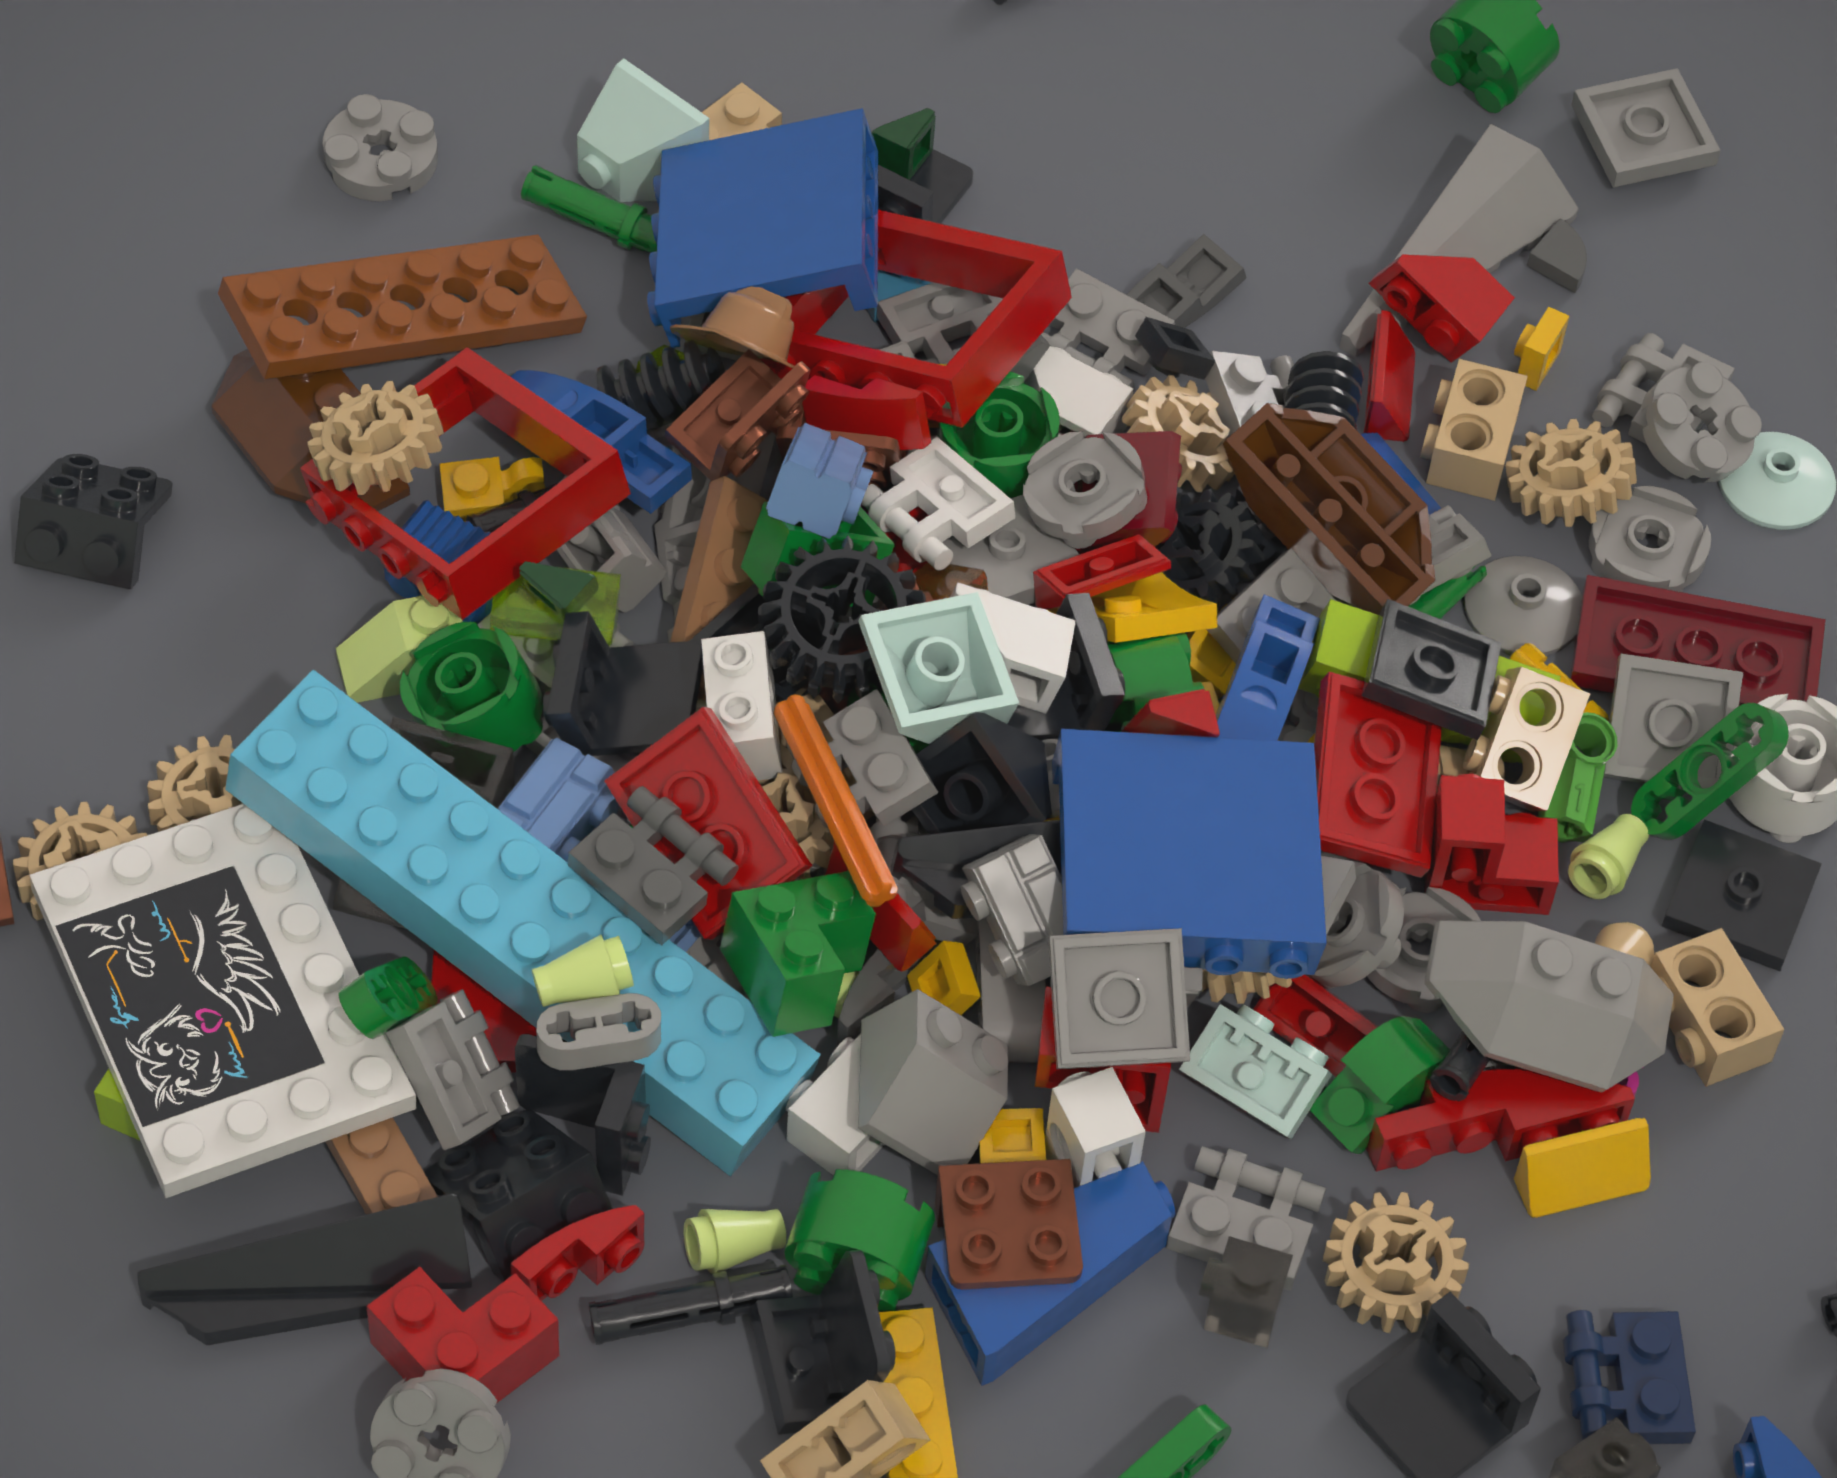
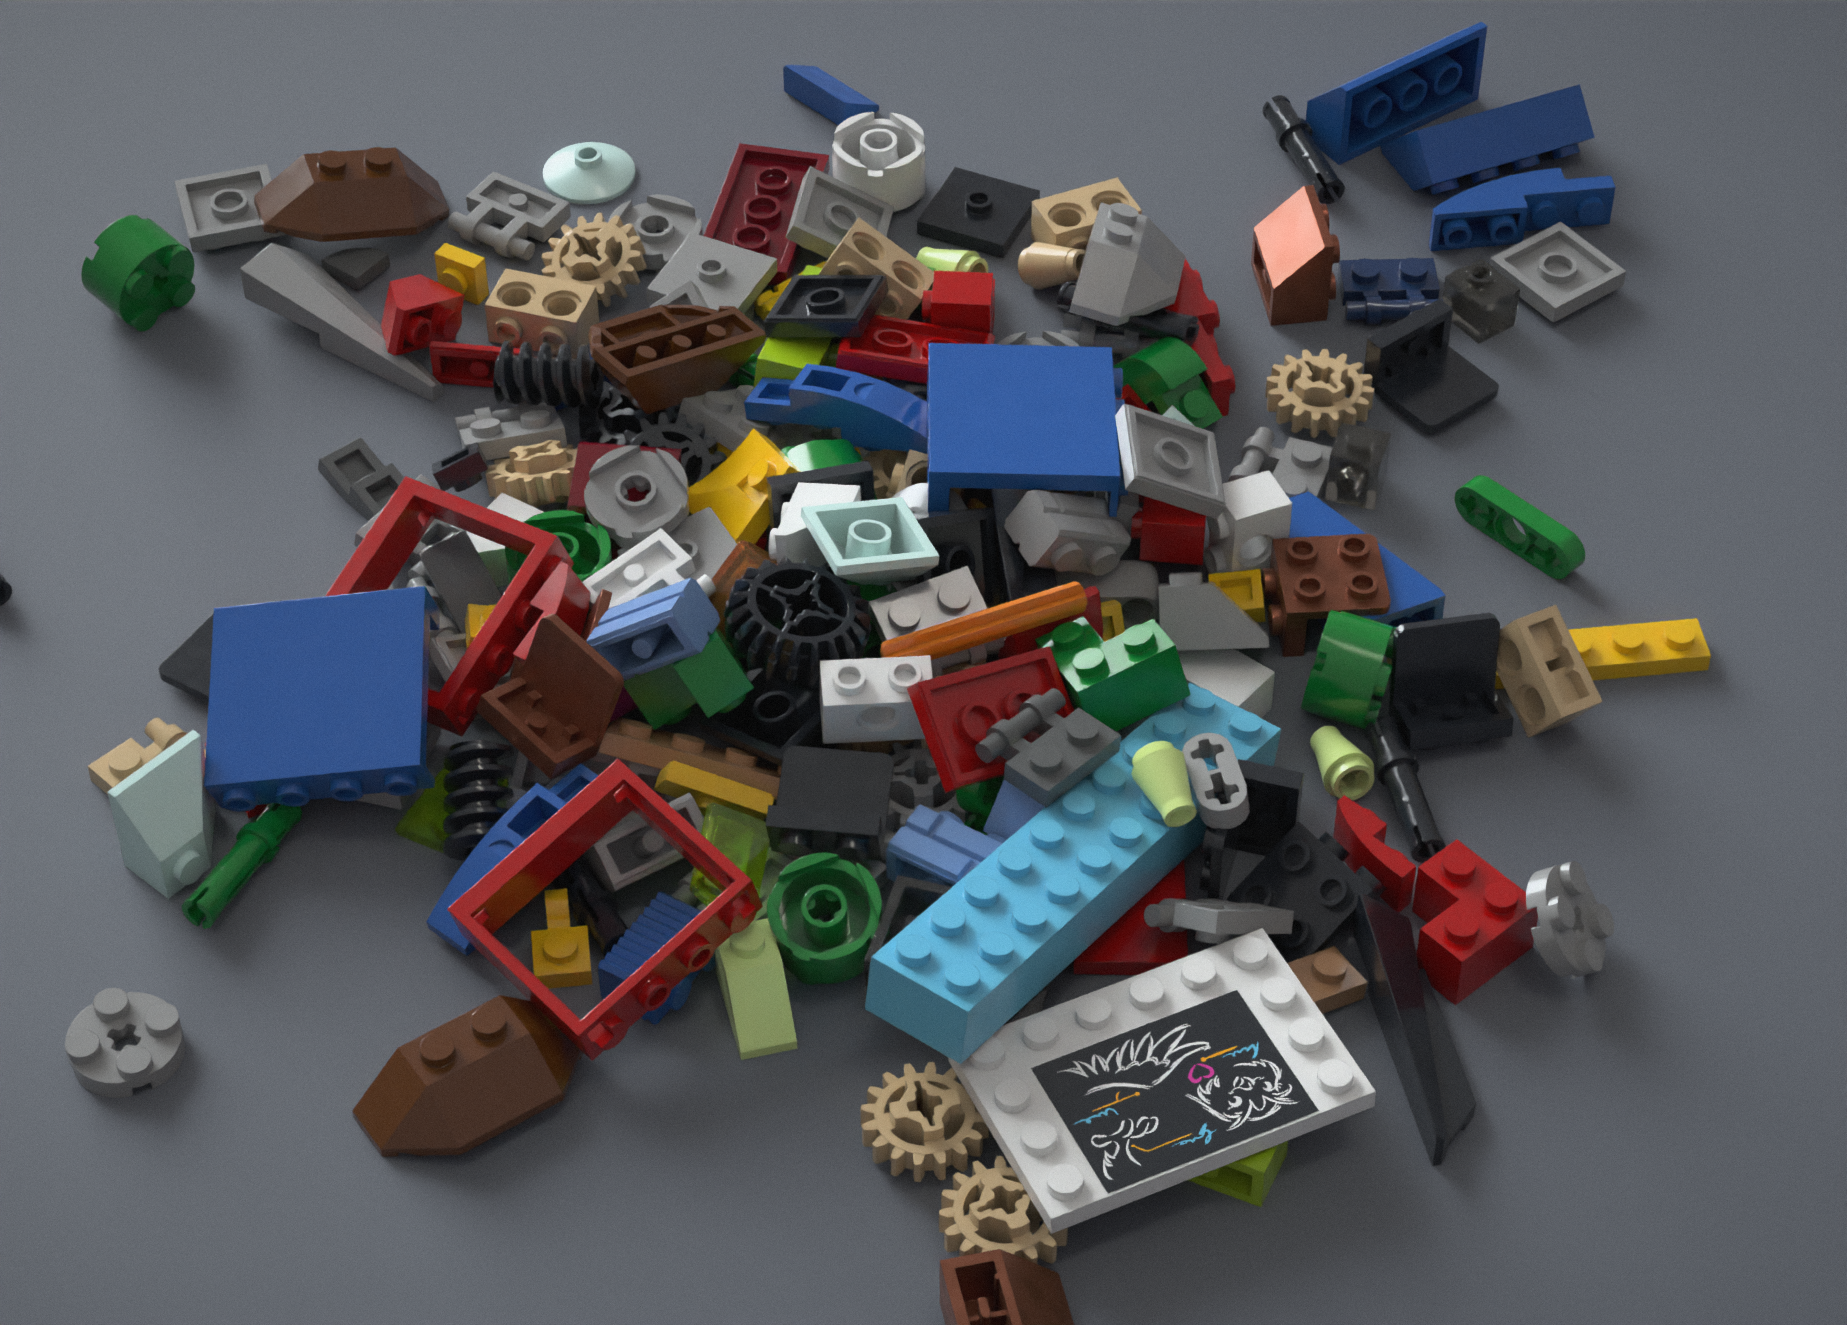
camera: 85 degrees left, 10 degrees down
(88, 519) = (591, 1233): black bracket -> none
(375, 437) = (572, 953): tan gear -> none
(387, 996) = (1169, 945): green beam -> none
(389, 329) = (367, 986): dark orange plate -> none
(558, 587) = (741, 826): dark green slope -> none
(659, 585) = (679, 779): none -> yellow plate
(746, 321) = (458, 685): medium nougat piece -> none
(906, 142) = (198, 631): dark green slope -> none
(1098, 571) = (729, 490): red slope -> none
(1177, 714) = (893, 430): red slope -> none
(1537, 587) = (720, 271): none -> light grey plate
(1584, 1168) = (1234, 320): yellow slope -> none
(1640, 1244) = (1295, 260): none -> copper slope
(1651, 239) = (351, 197): none -> reddish brown wedge
(1682, 773) = (877, 161): green beam -> none
(1719, 404) = (555, 183): light grey plate -> none

